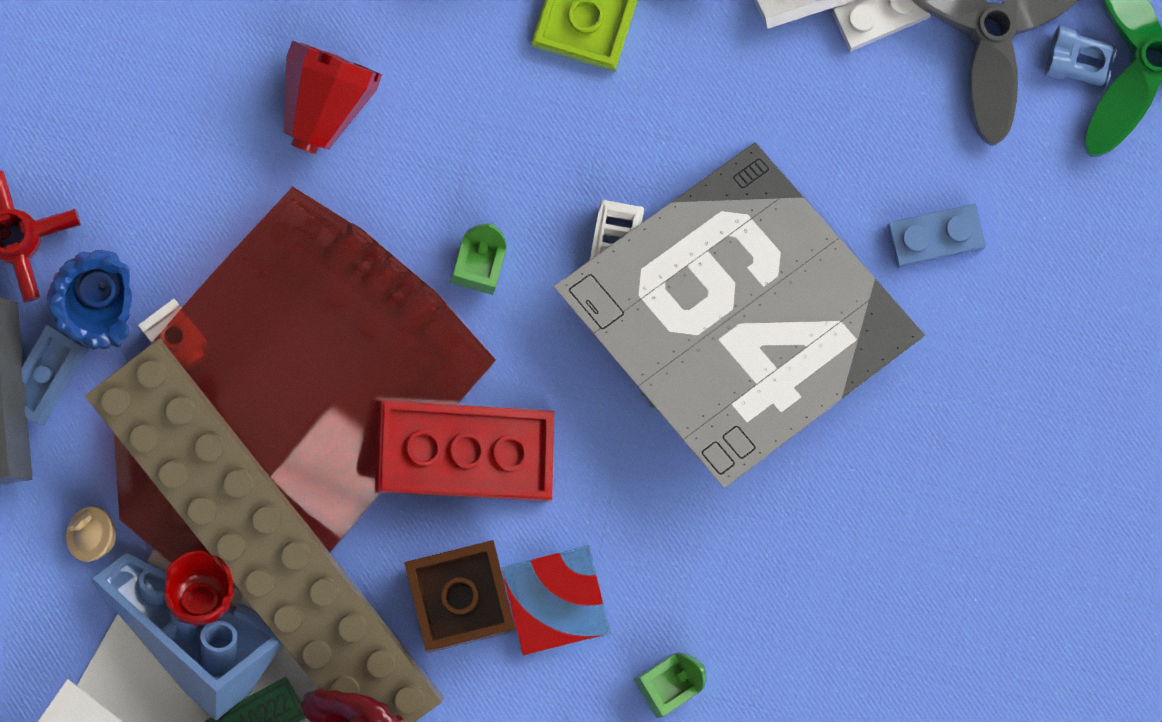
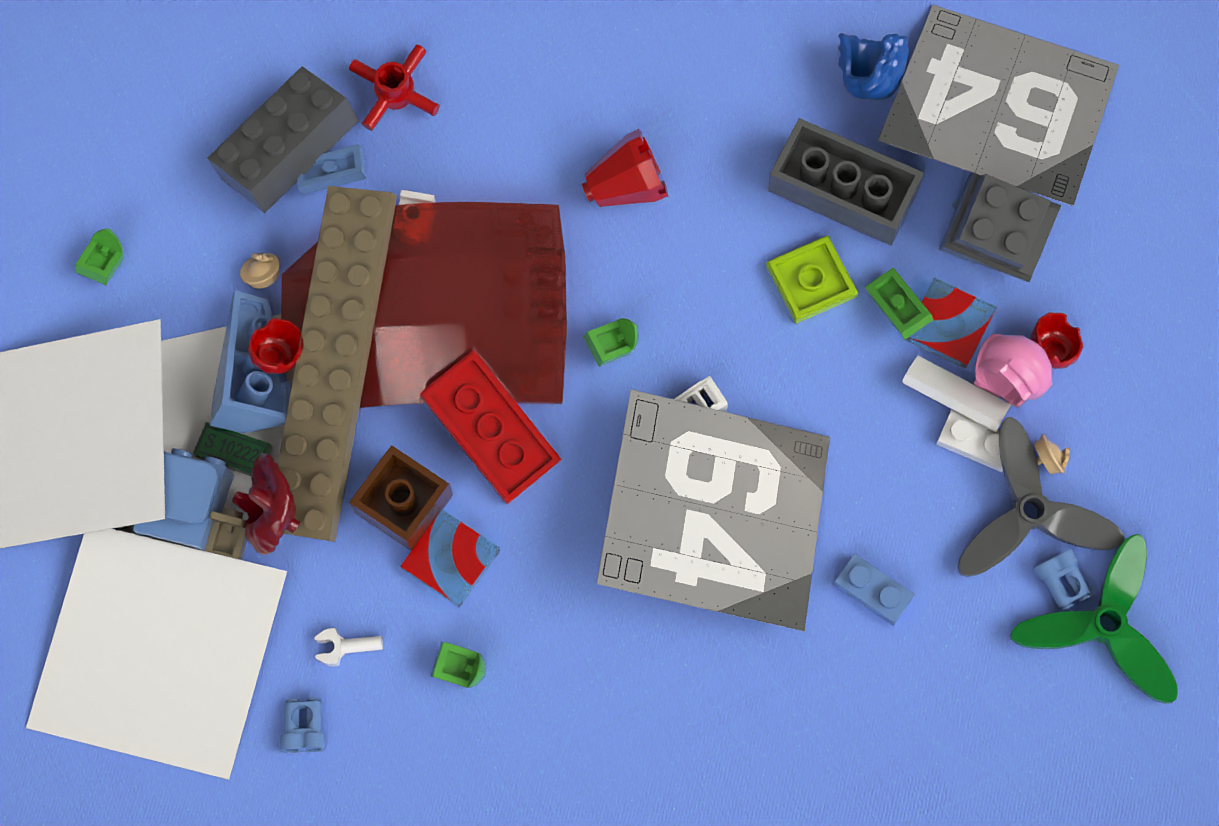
camera: 55 degrees right, 10 degrees down
(86, 310) = (387, 149): blue hair -> none

